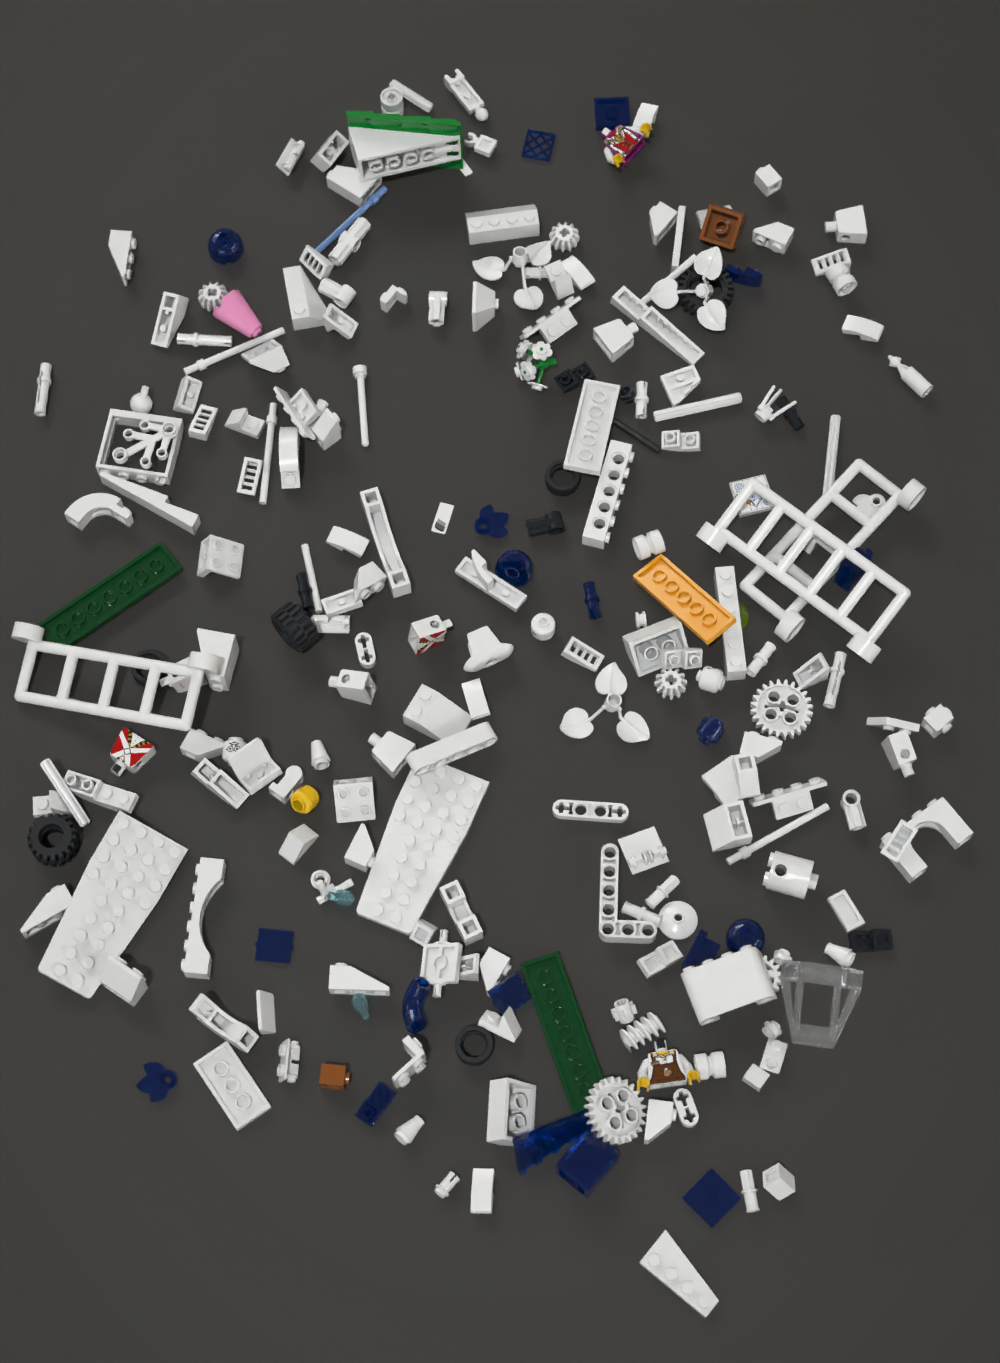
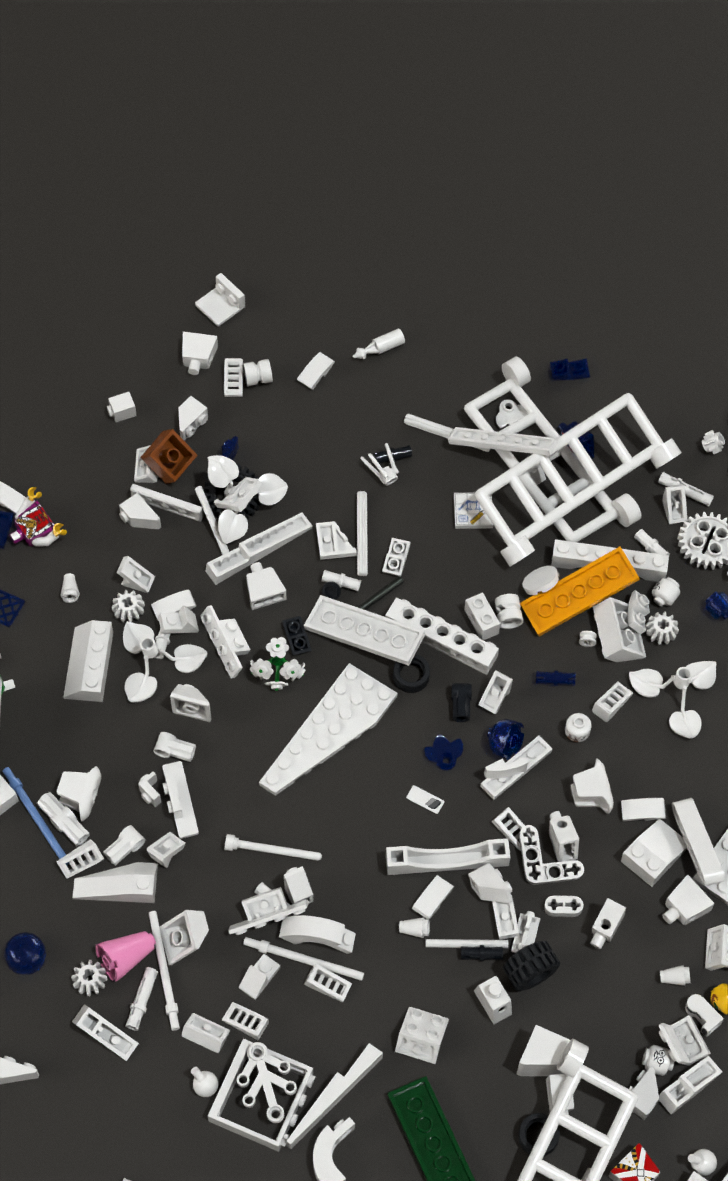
camera: 80 degrees left, 5 degrees down
(150, 804) = (703, 1161): none -> white piece
(260, 606) = (493, 997): none -> white torso
(315, 533) = (415, 927): none -> white cone
(375, 245) = (79, 790): none -> white piece
(389, 321) = (180, 800): none -> white bracket
(395, 625) = (543, 869): none -> white beam
(435, 598) = (508, 833): none -> white slope
(503, 431) = (342, 715): none -> white wing
(559, 549) = (496, 691): none -> white slope
(568, 189) = (69, 589): none -> white cone
(596, 233) = (135, 575): none -> white slope
(636, 523) = (482, 616): none -> white brick
(688, 565) = (541, 580): none -> white tile
(694, 289) = (240, 495): none -> white wing
(822, 494) = (503, 441): none -> white tile
(896, 694) = (713, 442): none -> white gear
(911, 231) = (222, 301): none -> white bracket
(940, 550) = (570, 370): none -> clear blue slope

